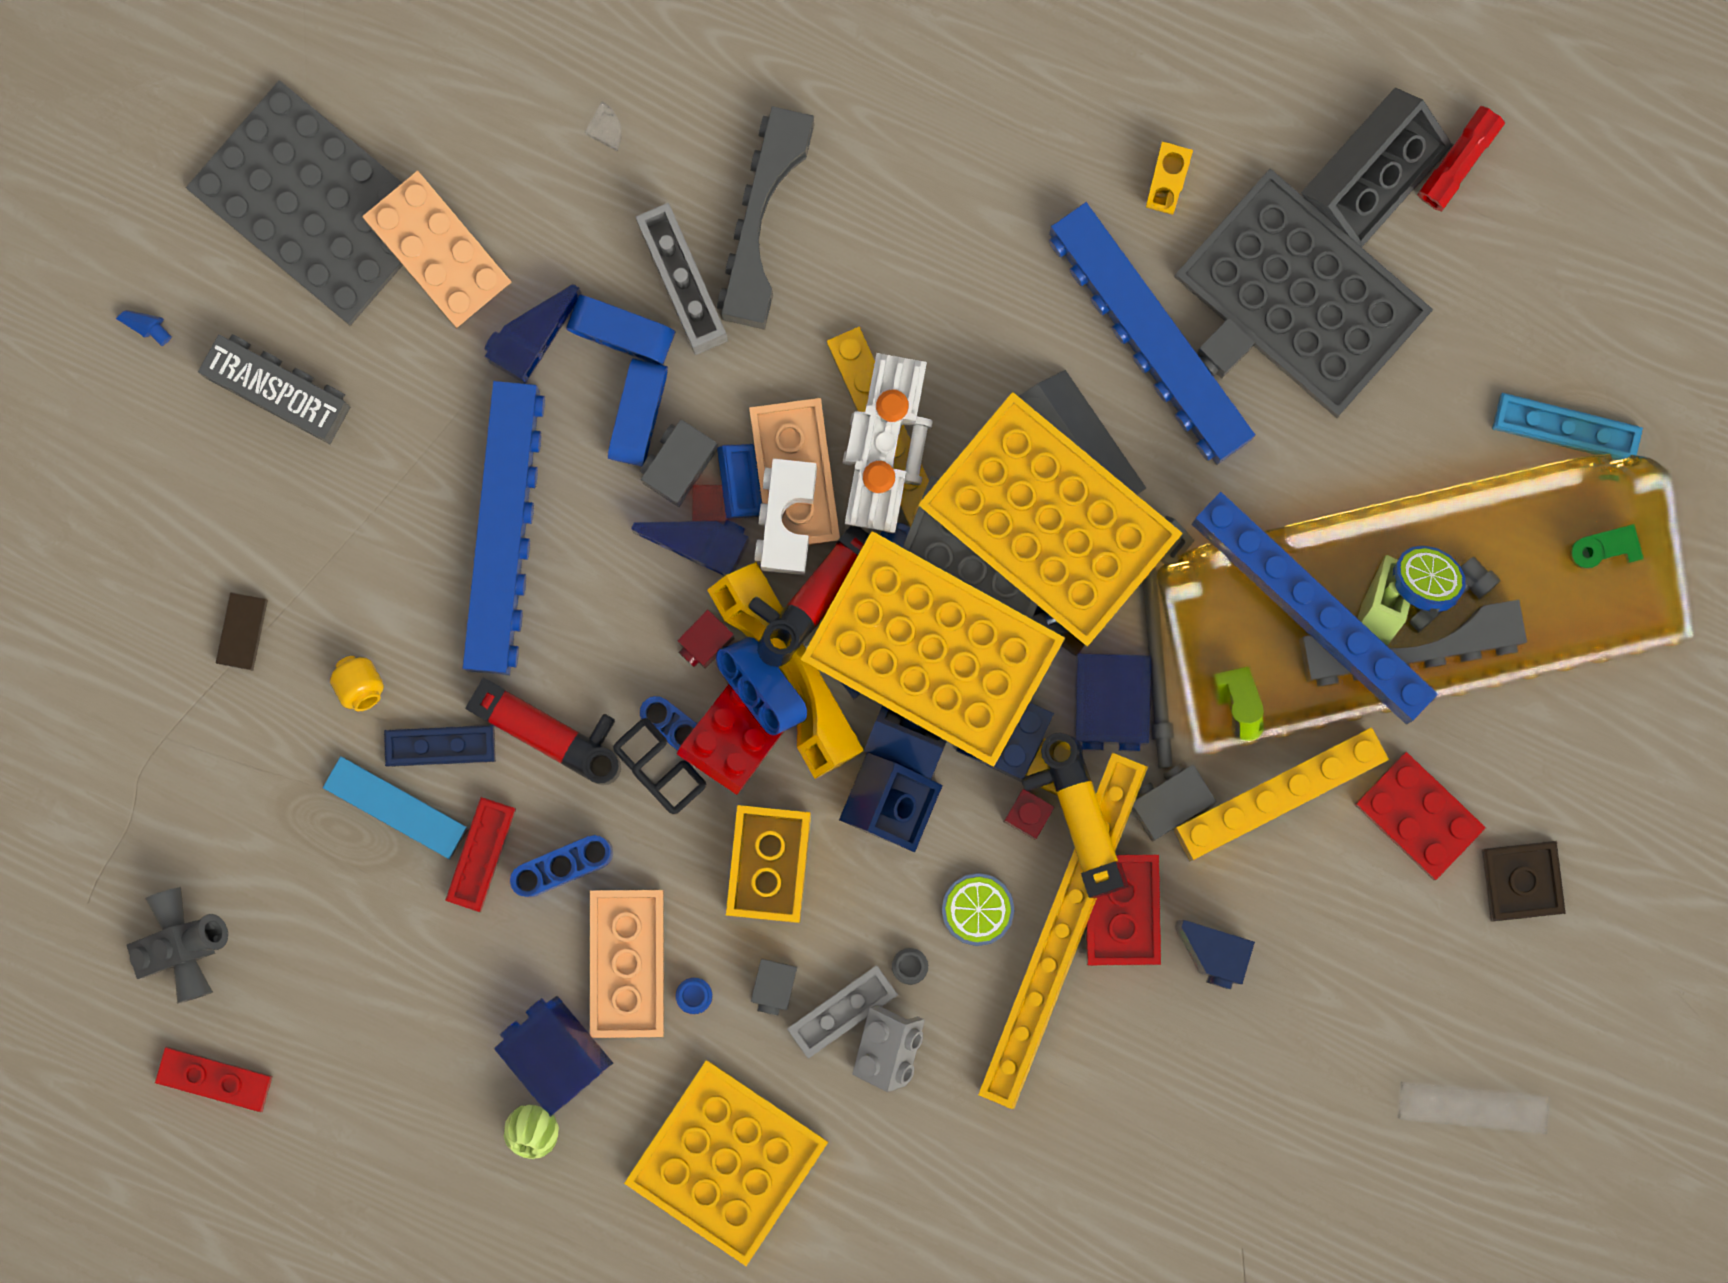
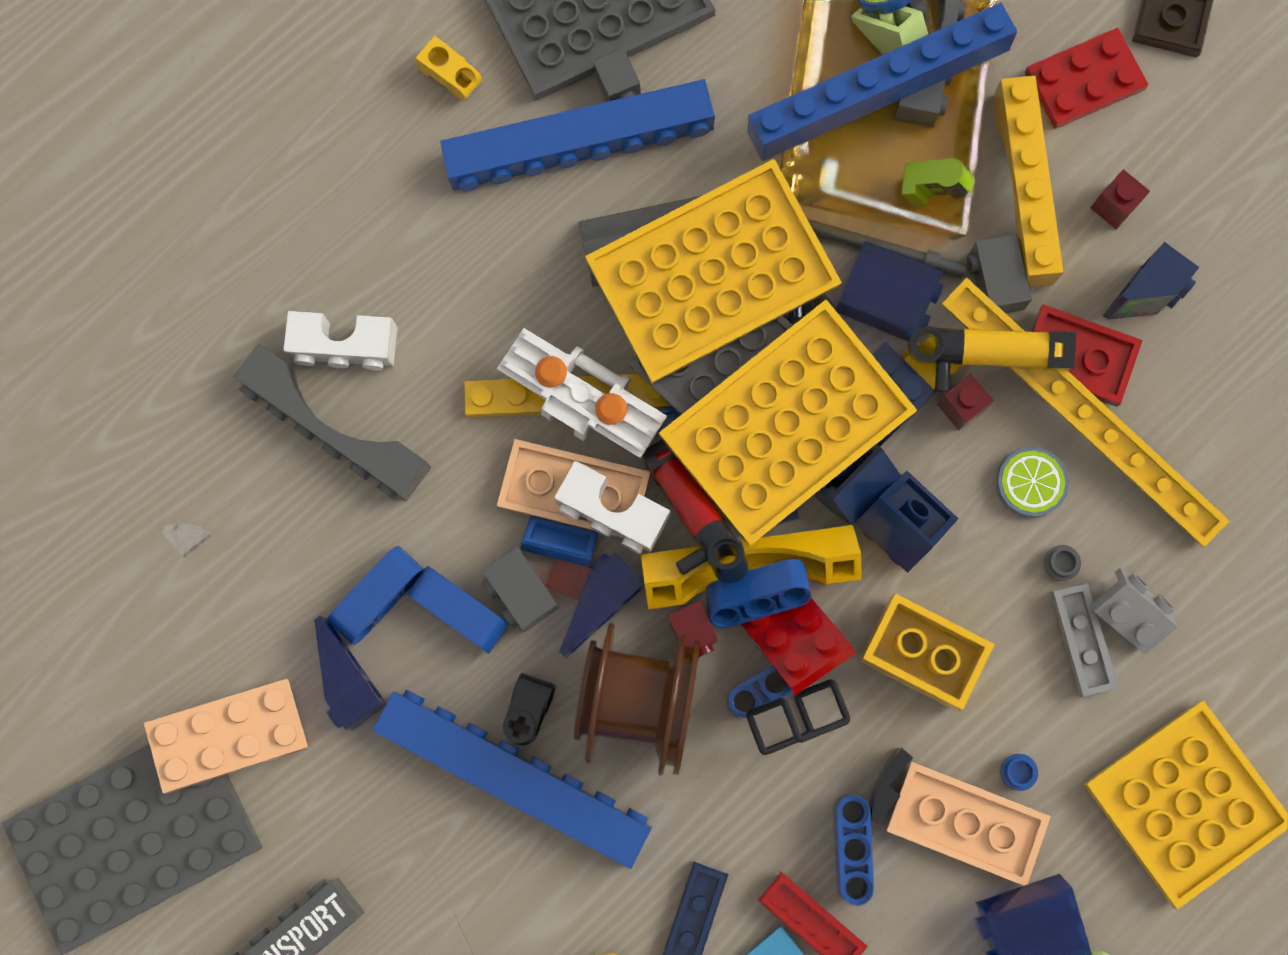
camera: 65 degrees left, 5 degrees down
(545, 732) = (720, 815): piece -> none
(578, 515) = (530, 702): none -> black piece
(615, 610) = (637, 699): none -> reddish brown wheel
(623, 875) = (883, 795): none -> black slope
(681, 278) = (353, 519): light grey brick -> none
(773, 986) = (1038, 693): dark grey brick -> none
(859, 221) = (369, 345): none -> white arch
(1298, 892) = (1120, 199): none -> dark red brick

